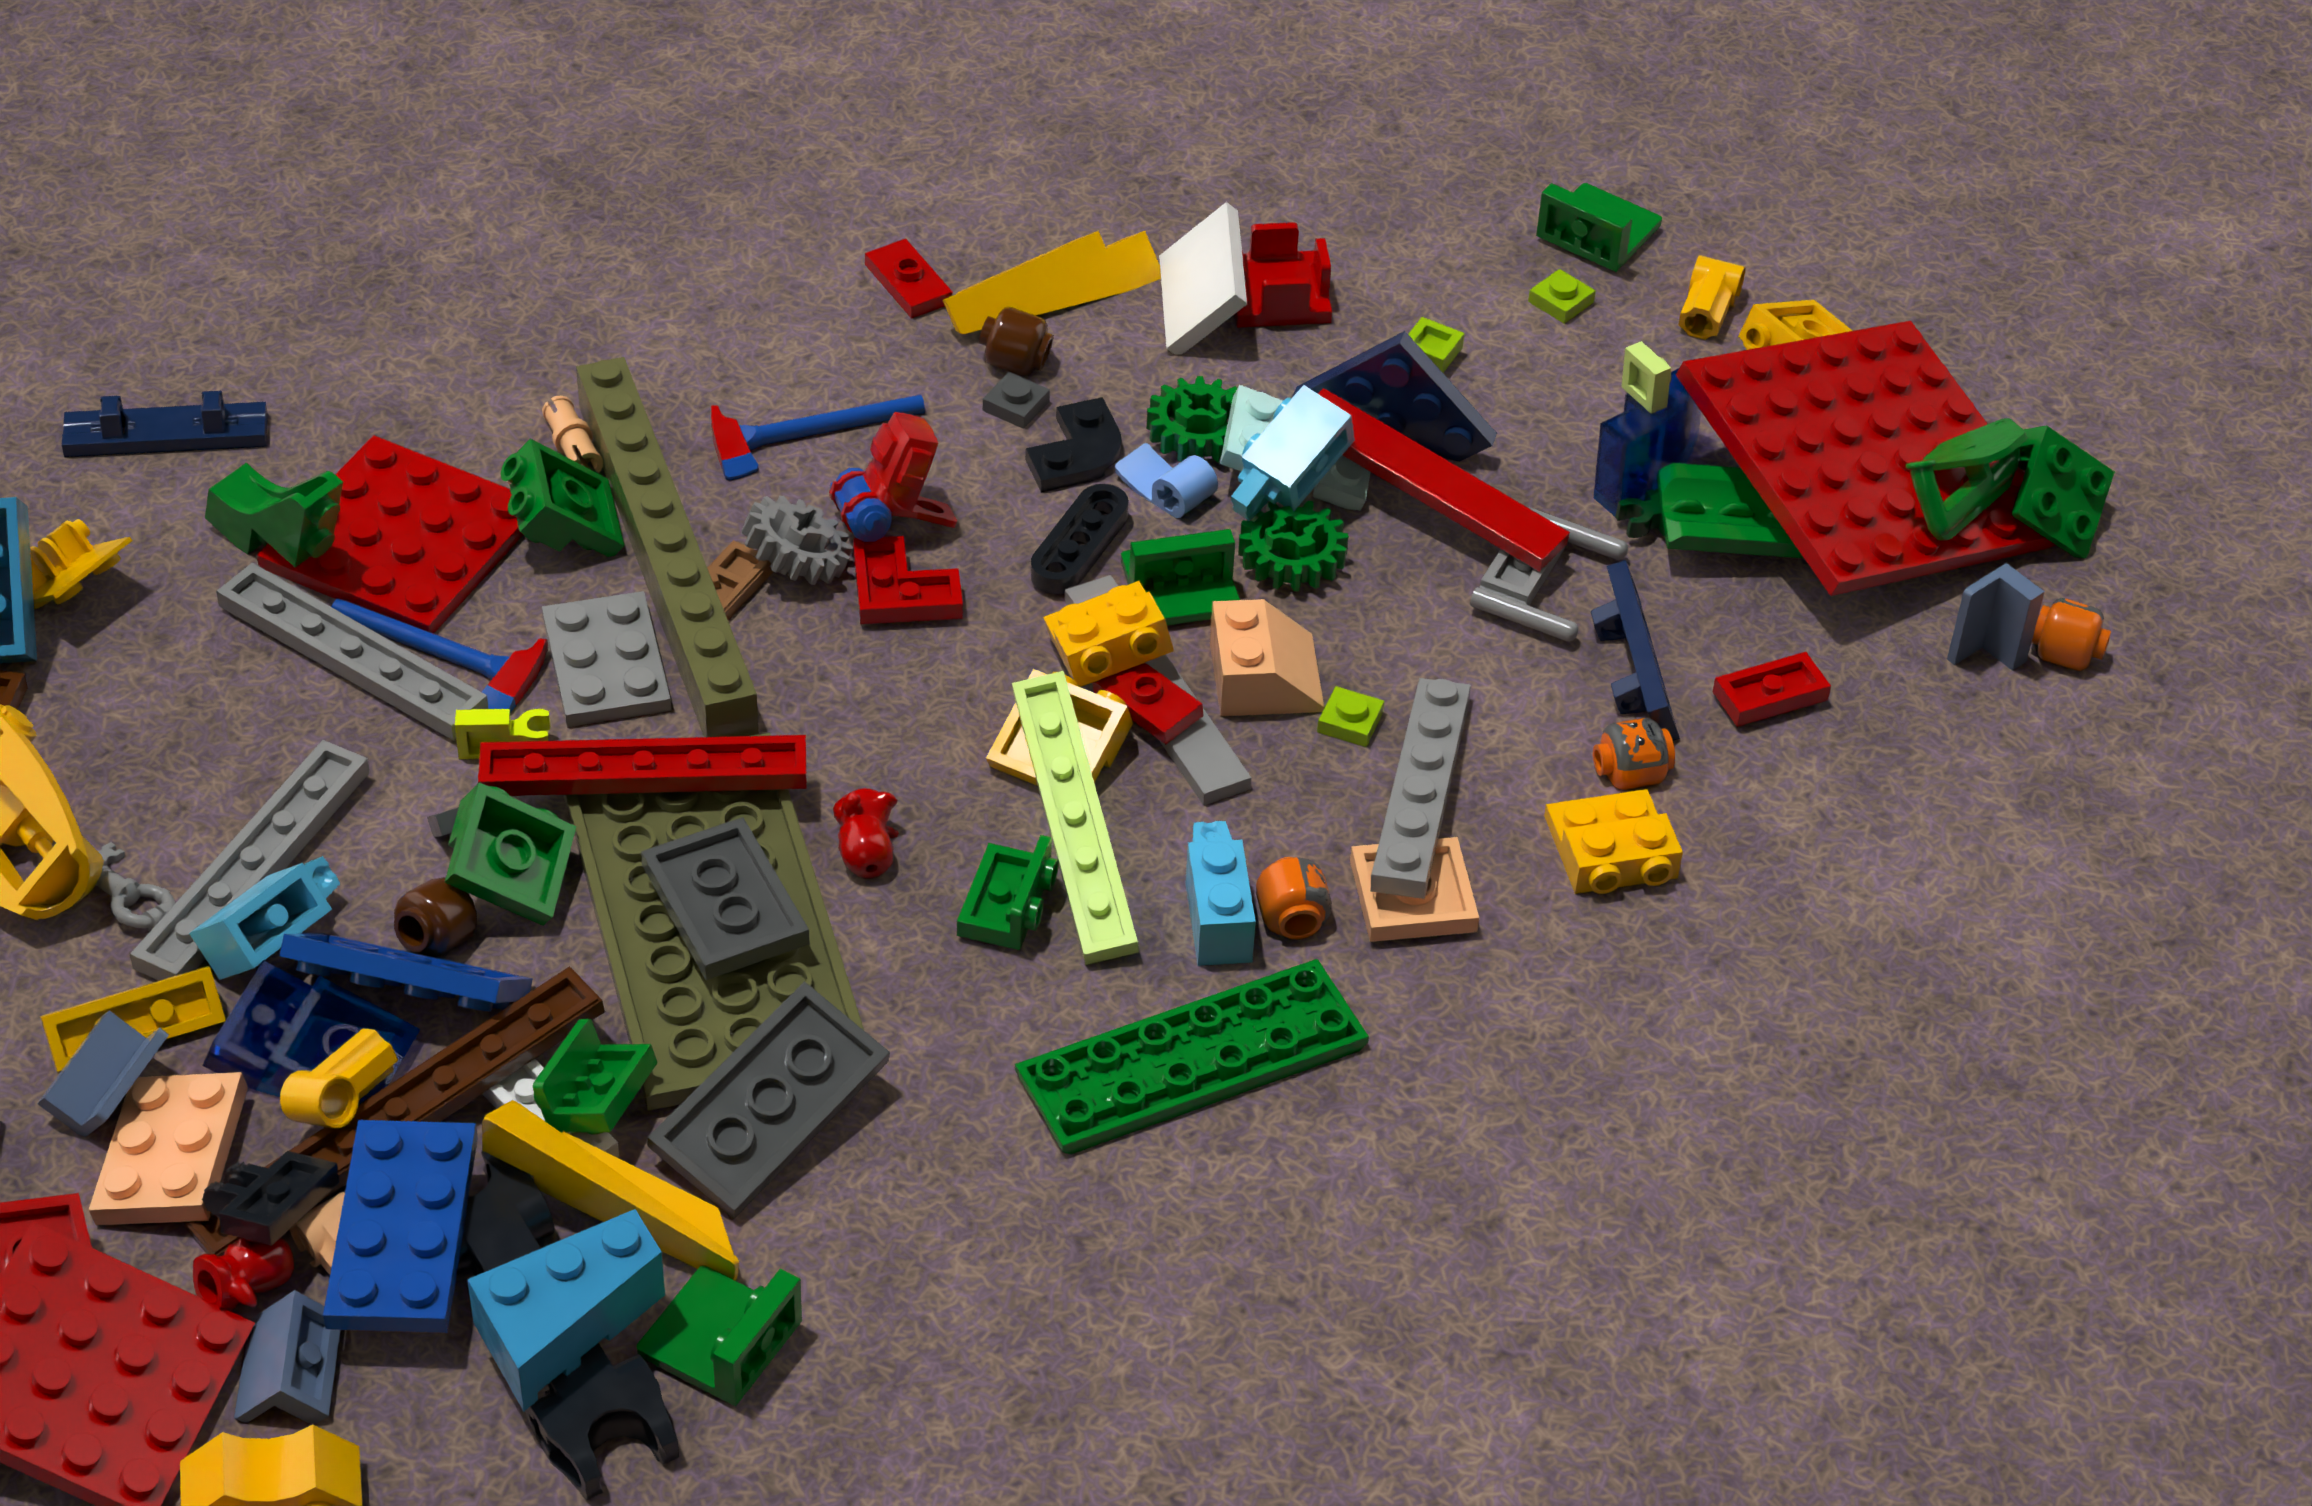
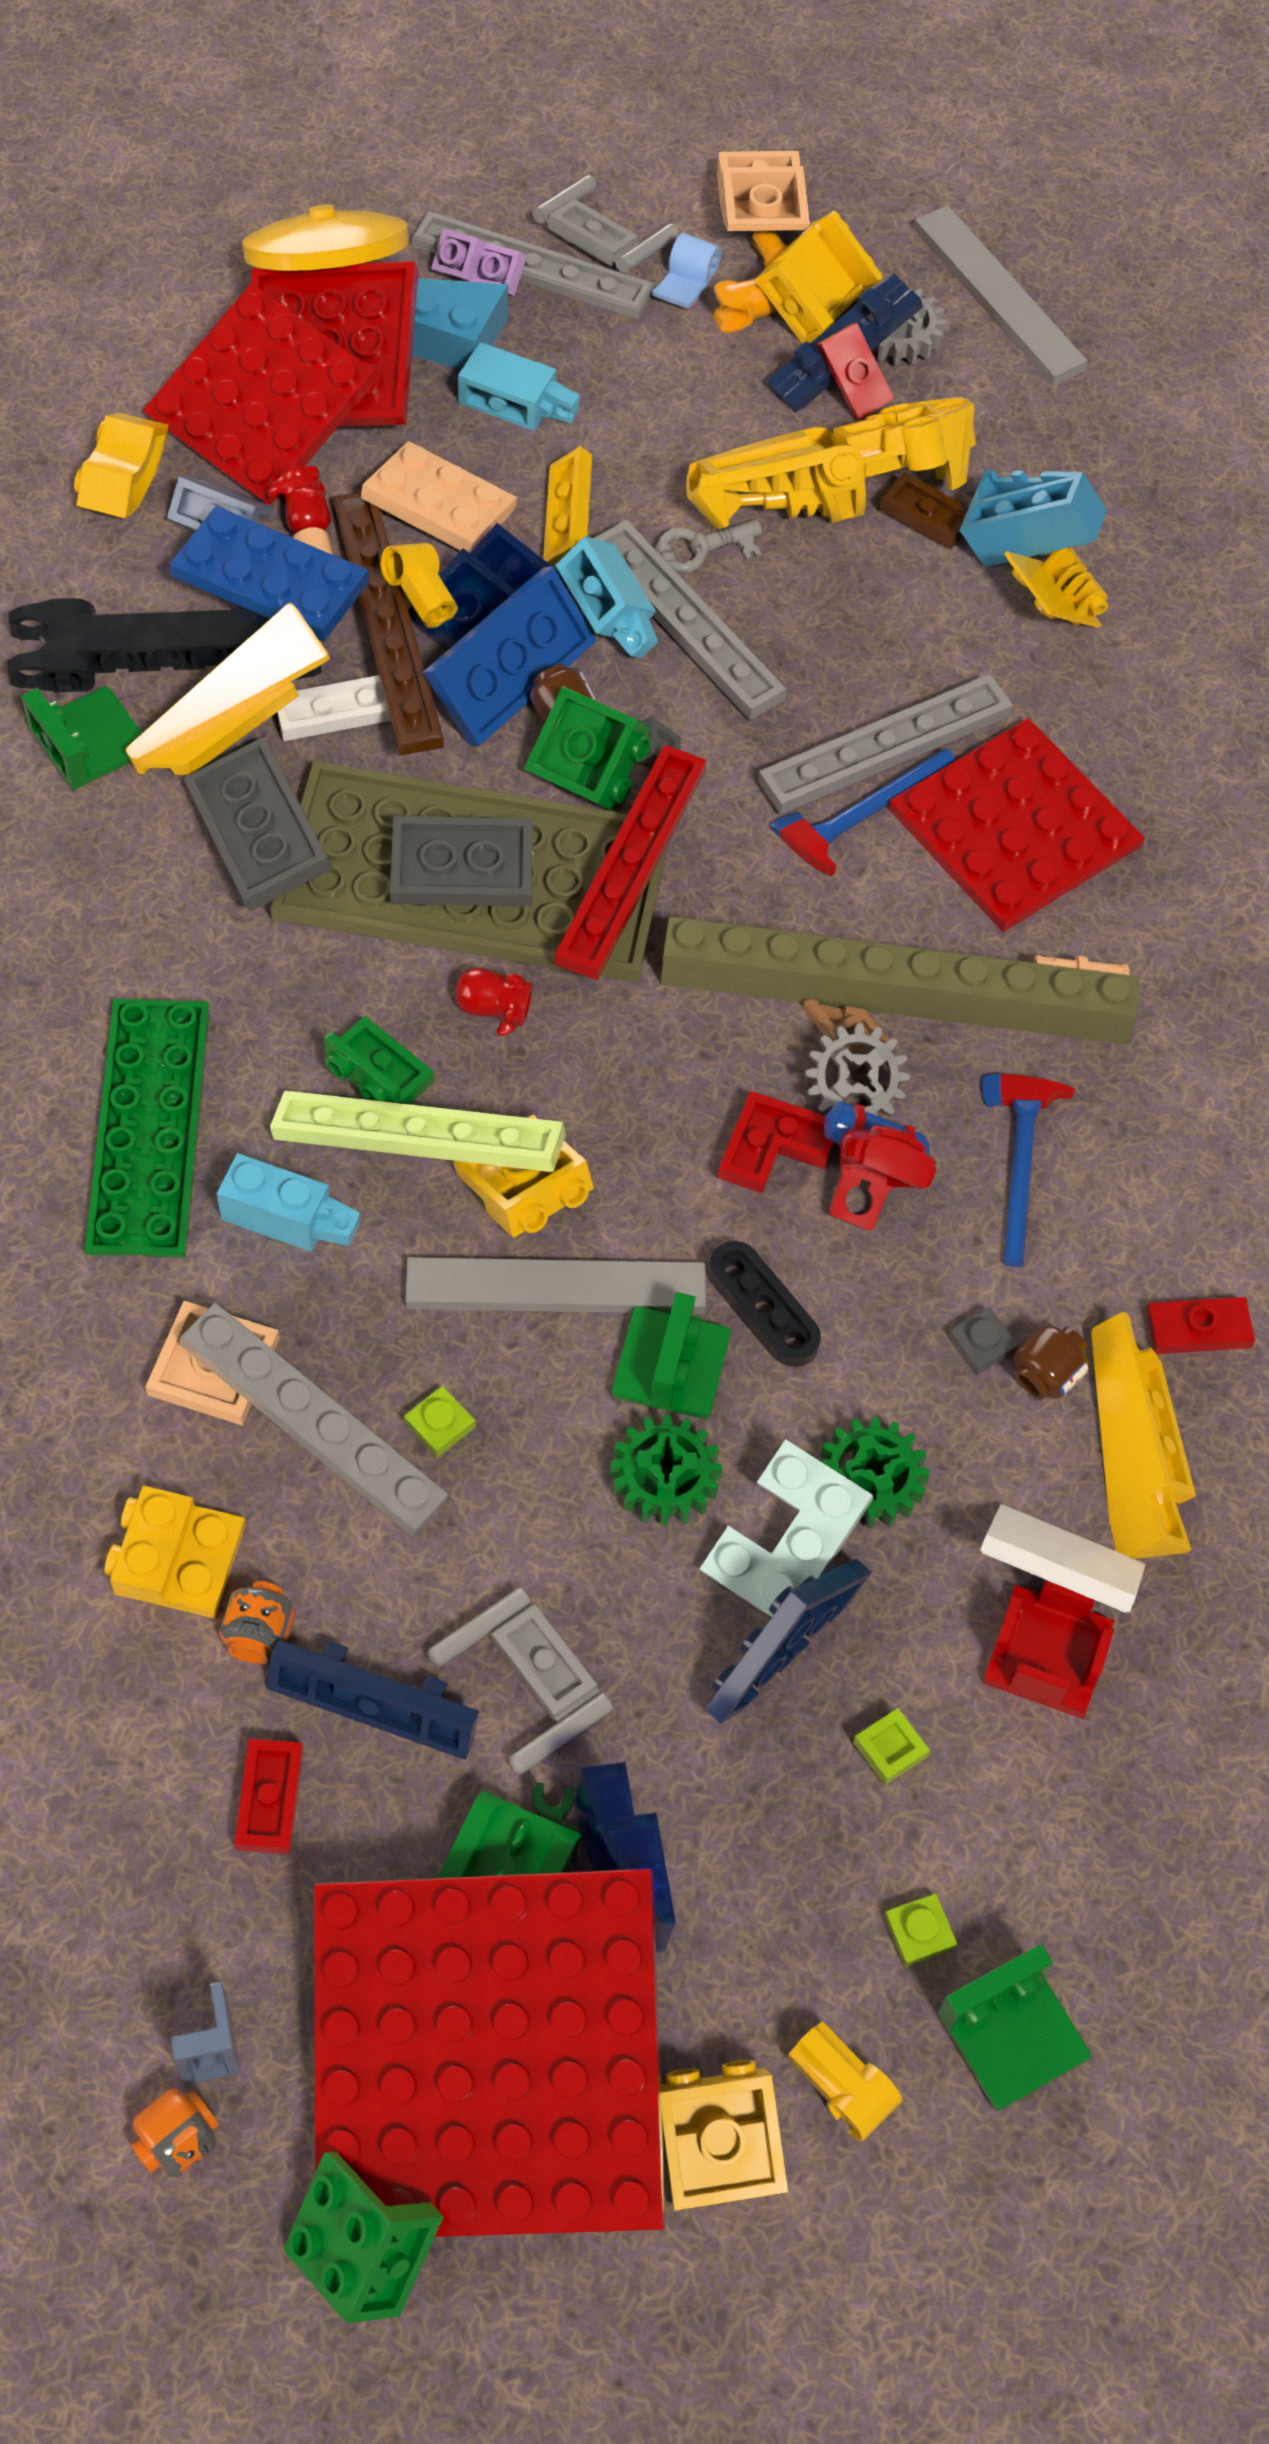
camera: 115 degrees right, 15 degrees up
(100, 1074) = (522, 474): sand blue panel -> none
(164, 428) = (1220, 711): dark blue hinge -> none
(269, 1201) = (332, 511): black hinge -> none
(292, 520) = (1030, 720): green arch -> none
(496, 726) = (742, 794): neon yellow plate -> none
(561, 501) = (983, 914): green plate -> none
(564, 1300) = (130, 618): dark azure wedge -> none
(591, 1083) = (330, 716): green bracket -> none
(606, 659) = (798, 899): light grey plate -> none
(1090, 447) = (885, 1374): black plate -> none
(1109, 633) = (610, 1247): yellow plate -> none
(1153, 701) = (531, 1256): red plate -> none
(1169, 488) = (811, 1415): light blue panel -> none
(1262, 661) = (530, 1372): light nougat slope -> none
(1292, 453) = (741, 1480): hinge -> none
(1293, 897) = (252, 1262): orange head -> none
(1451, 490) = (668, 1609): red tile -> none
(1646, 377) = (645, 1820): yellowish green plate -> none
(1985, 483) = (399, 2128): green piece -> none

